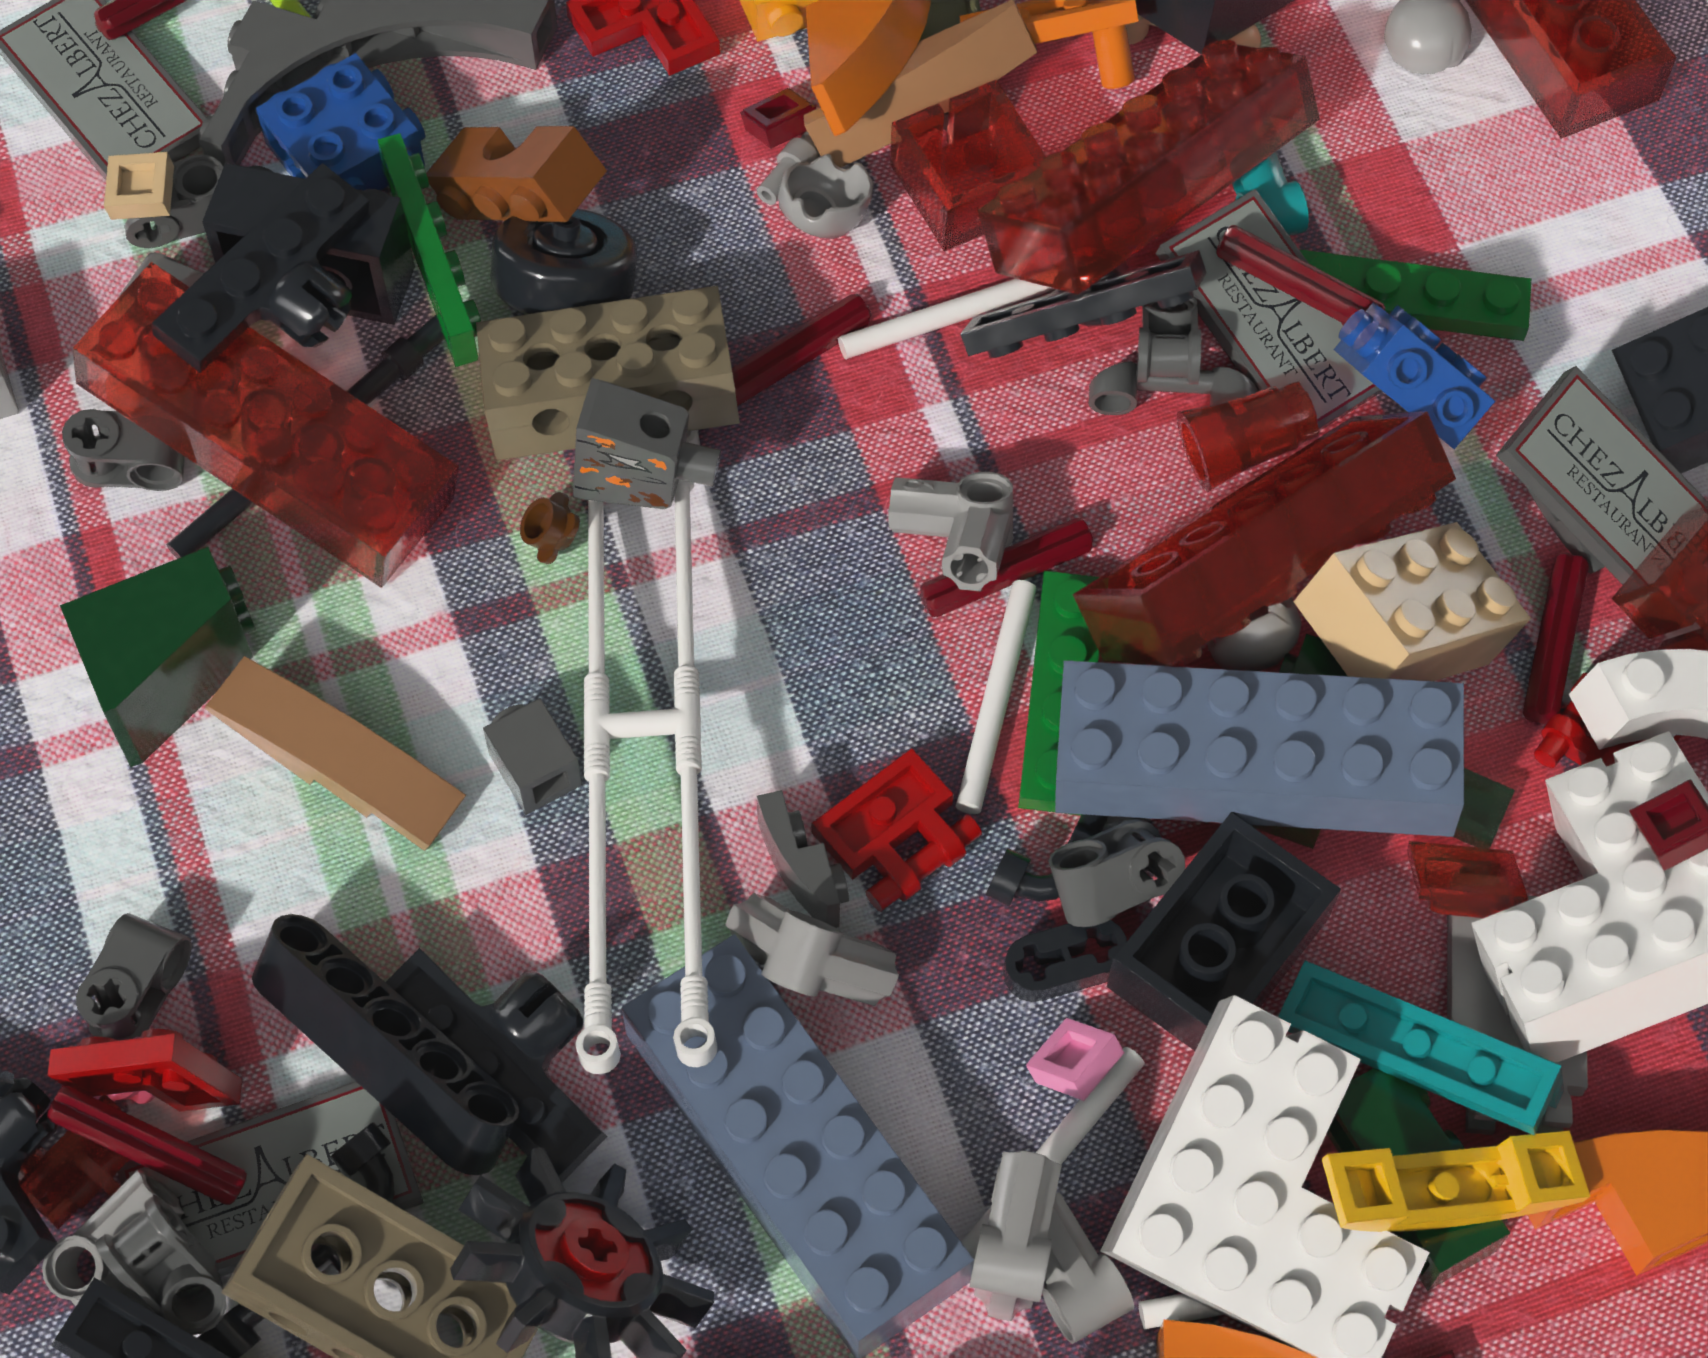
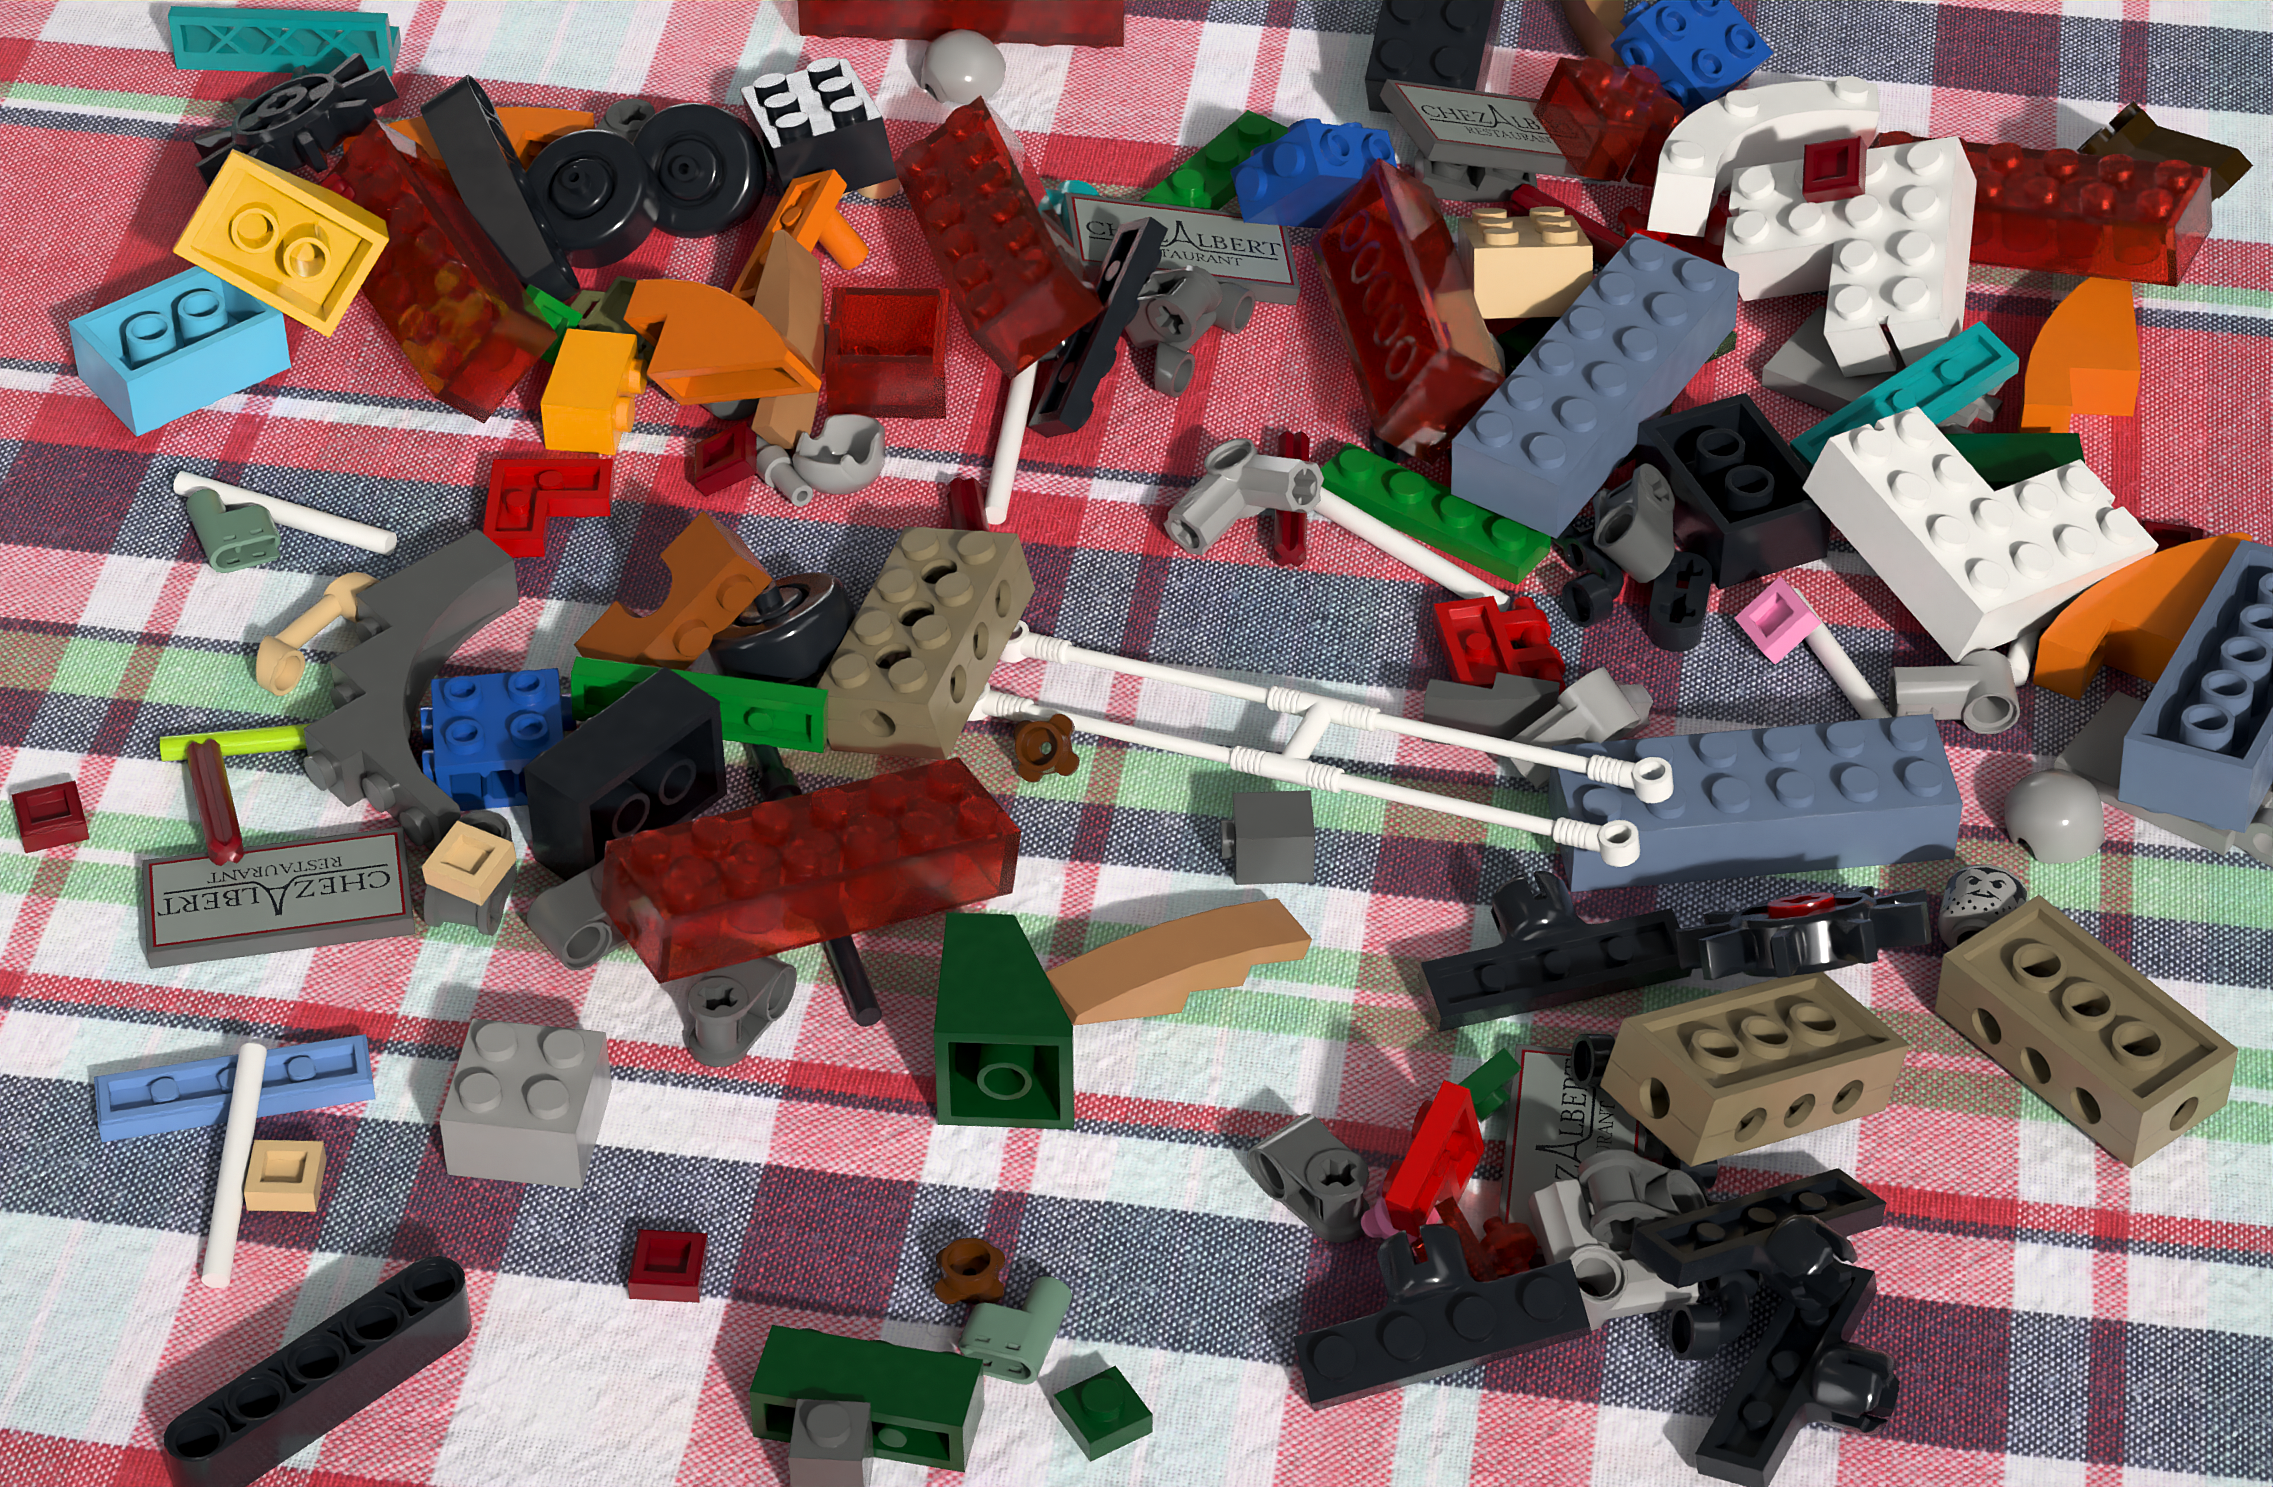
camera: 60 degrees left, 20 degrees down
(147, 1145) = (1503, 1187): dark red axle -> none
(271, 276) = (694, 764): black plate -> none
(294, 1069) = (1488, 1084): none -> dark green plate
(385, 1044) = (1498, 1013): black beam -> none
(636, 449) = (1035, 636): dark grey torso -> none
(1015, 1244) = (1940, 678): light grey piece -> none
(1245, 432) = (1278, 313): clear red plant -> none
(1292, 275) = (1171, 205): dark red axle -> none
(1455, 1186) = (2035, 418): yellow slope -> none
(1465, 879) = (1767, 348): clear red piece -> none

